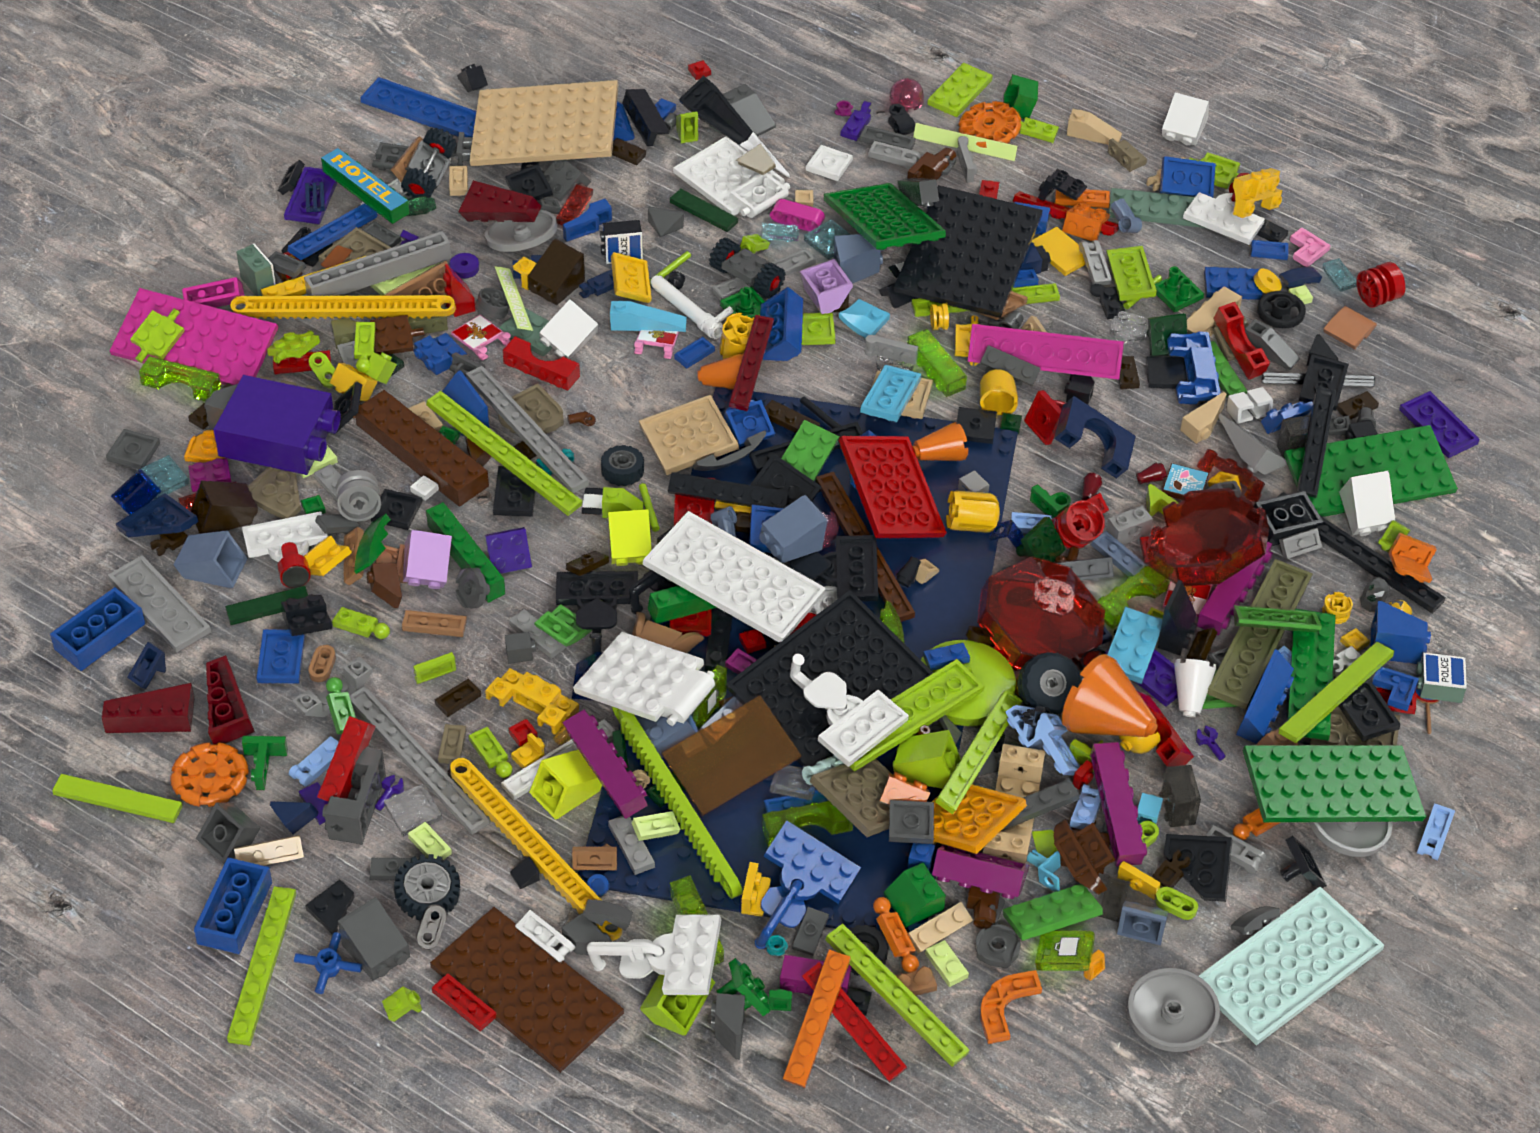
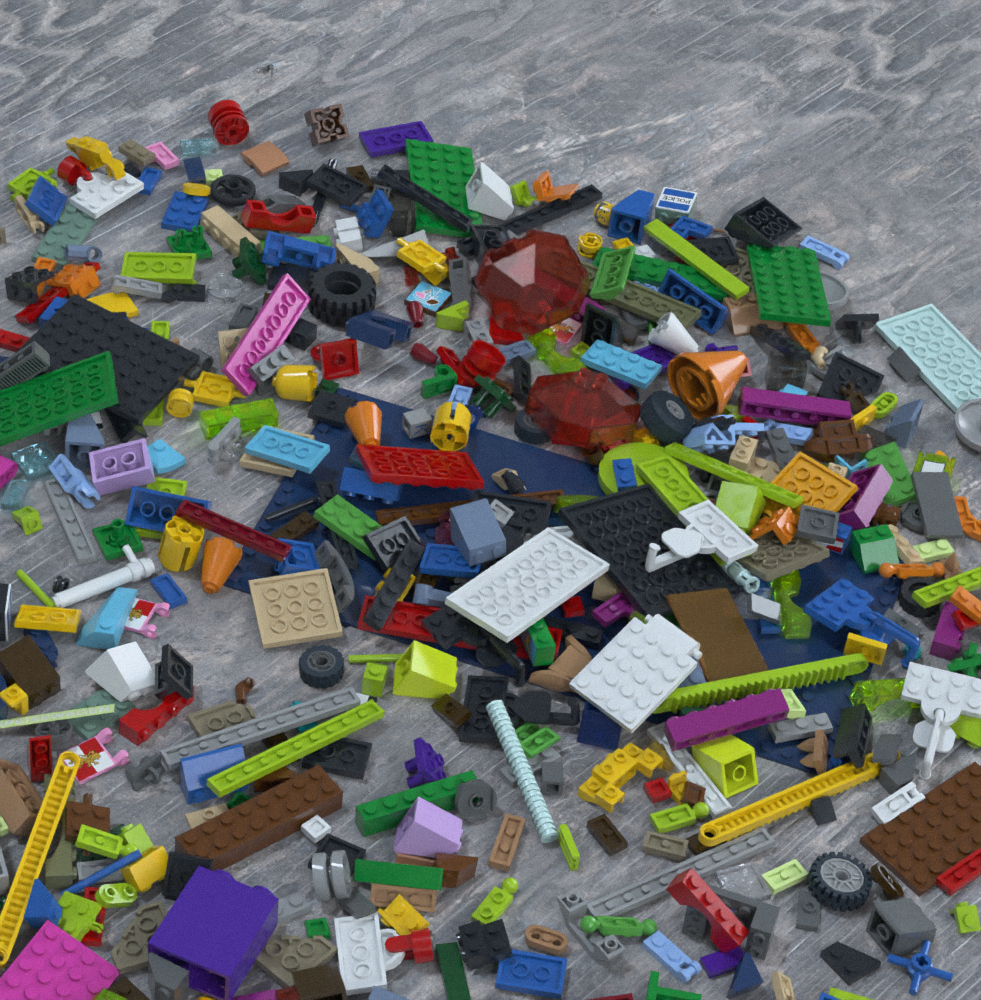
camera: 85 degrees left, 5 degrees down
(296, 322) = (42, 907): none -> blue slope
(340, 354) = (104, 872): none -> blue bar
(437, 352) = (113, 792): blue plate -> none
(516, 616) = (522, 771): none -> light aqua piece
(518, 757) = (692, 793): none -> reddish brown tile
(565, 353) = (173, 674): none -> black bracket
(624, 887) = (853, 734): none -> black panel
(747, 267) = (68, 523): plate -> none
(776, 787) = (763, 608): none -> tile
(803, 261) = (74, 481): none -> light blue plate
(837, 549) = (501, 513): none -> light grey bracket
(1007, 952) = (937, 505): none -> dark grey tile
(1151, 391) = (340, 279): none -> black tyre
(1210, 779) = (780, 342): none -> black plate
(1225, 826) = (817, 356): none -> tan arm
(1227, 455) = (421, 256): none -> yellow plate
(1298, 229) = (137, 152): none -> dark tan plate
(1374, 591) = (581, 220): dark grey rock -> none
(1417, 358) = (326, 125): none -> brick
(1438, 755) = (762, 224): none -> black slope

